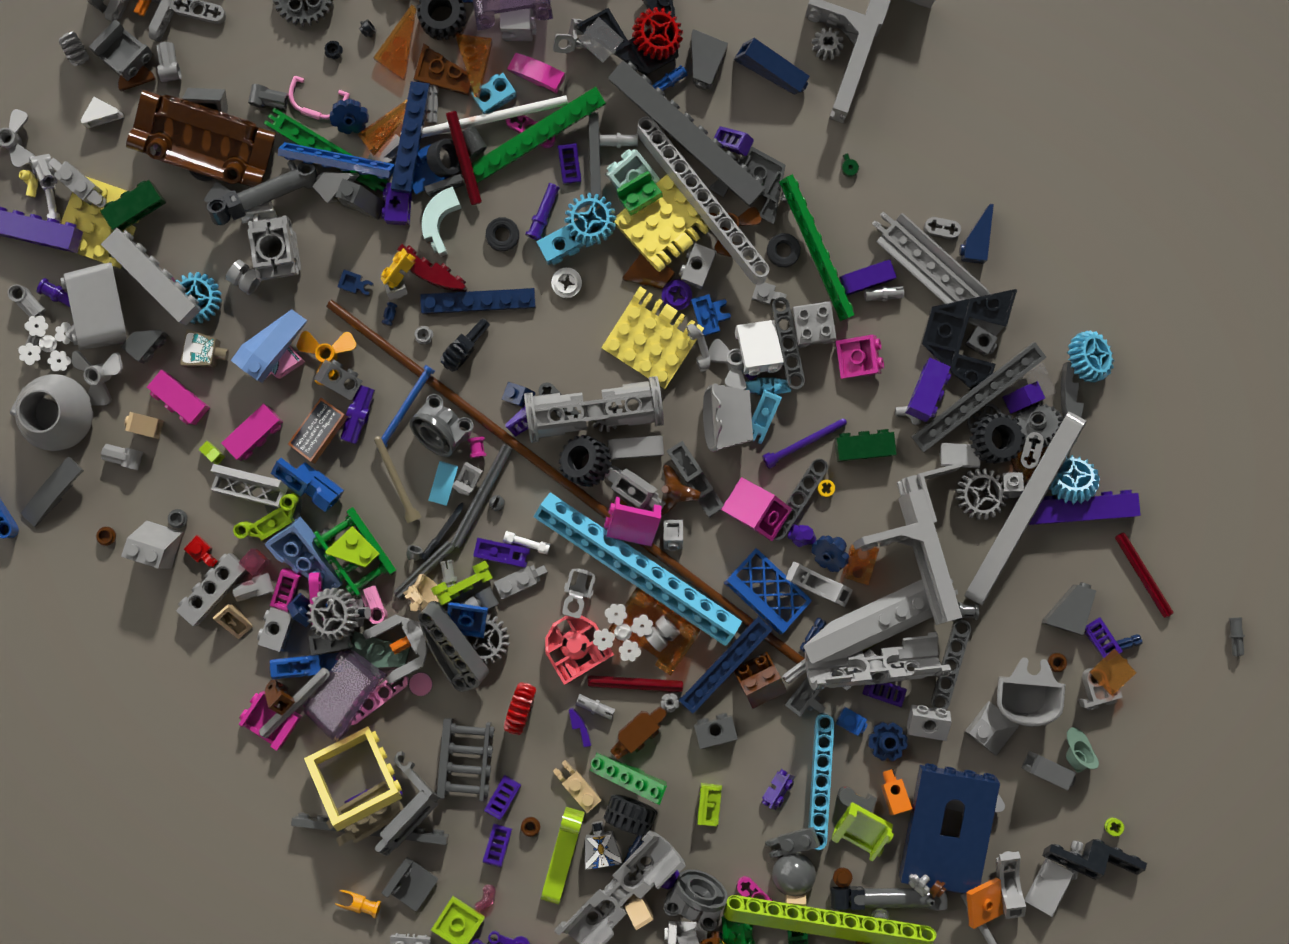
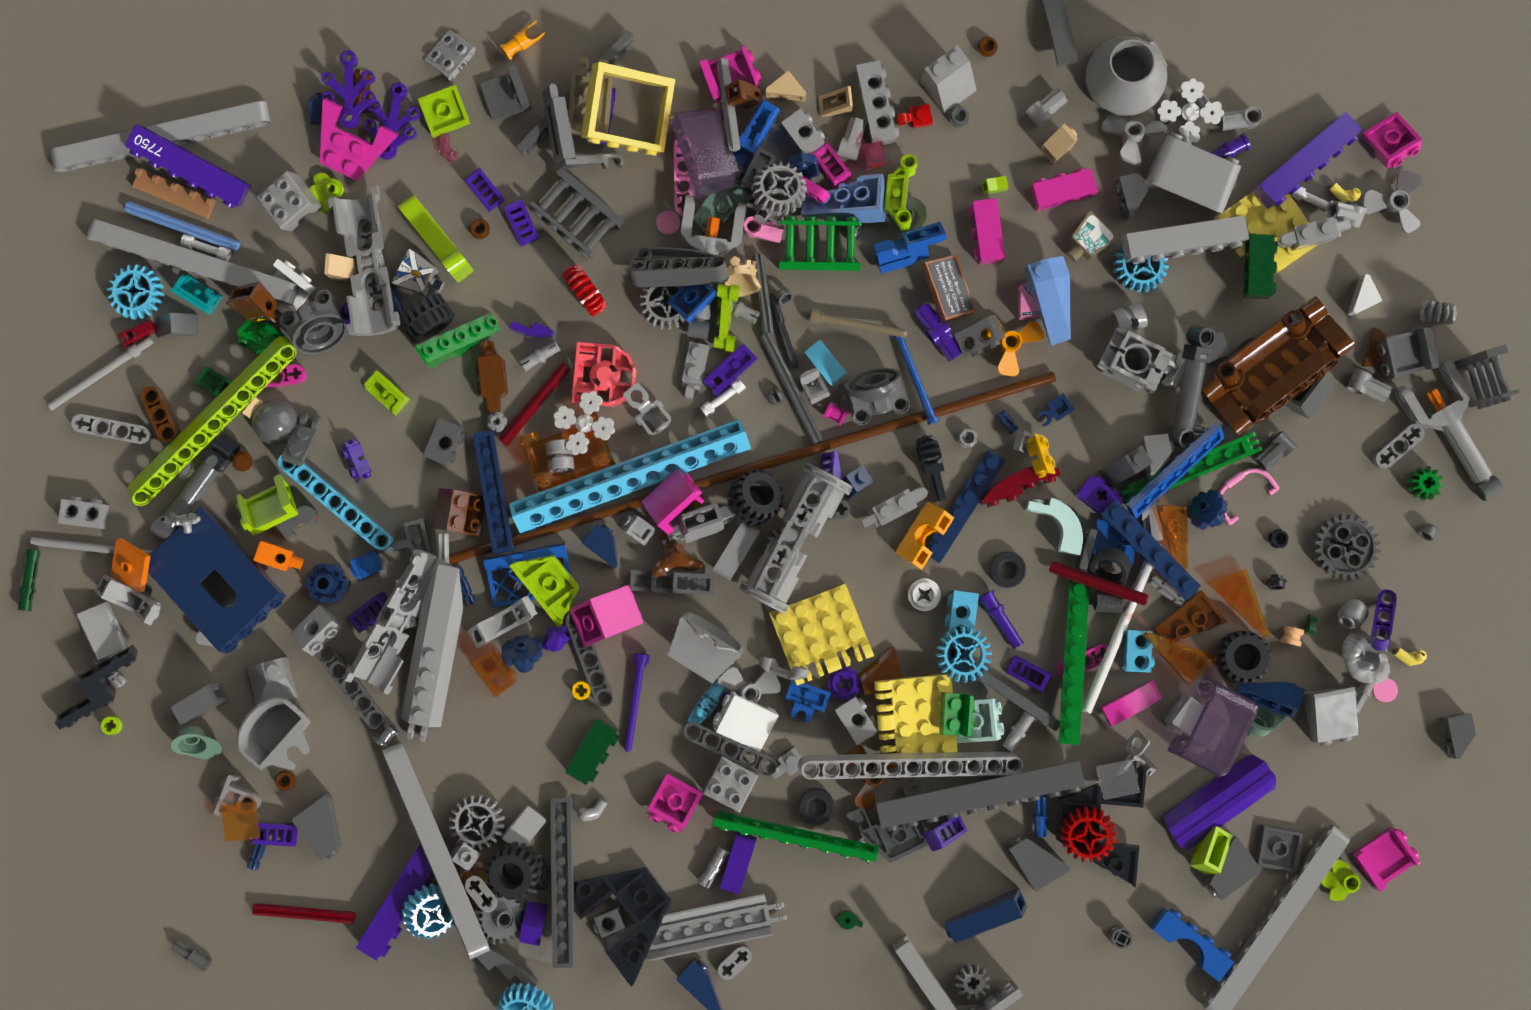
camera: 120 degrees right, 0 degrees up
(246, 478) = (948, 199): light grey fence -> none
(249, 667) = (786, 88): none -> tan slope
(353, 548) = (823, 245): lime wing -> none
(507, 318) = (929, 520): none -> light orange arch
(516, 351) = (894, 507): none -> light grey hinge
(578, 788) = (482, 292): tan hinge -> none
(704, 552) = (603, 544): none -> dark blue slope
(764, 414) = (683, 683): medium azure hinge -> none
(764, 570) = (548, 584): none -> lime wing
(922, 536) = (477, 741): light grey piece -> none
(928, 390) = (600, 842): dark purple brick -> none
(937, 889) = (170, 532): reddish brown plate -> none

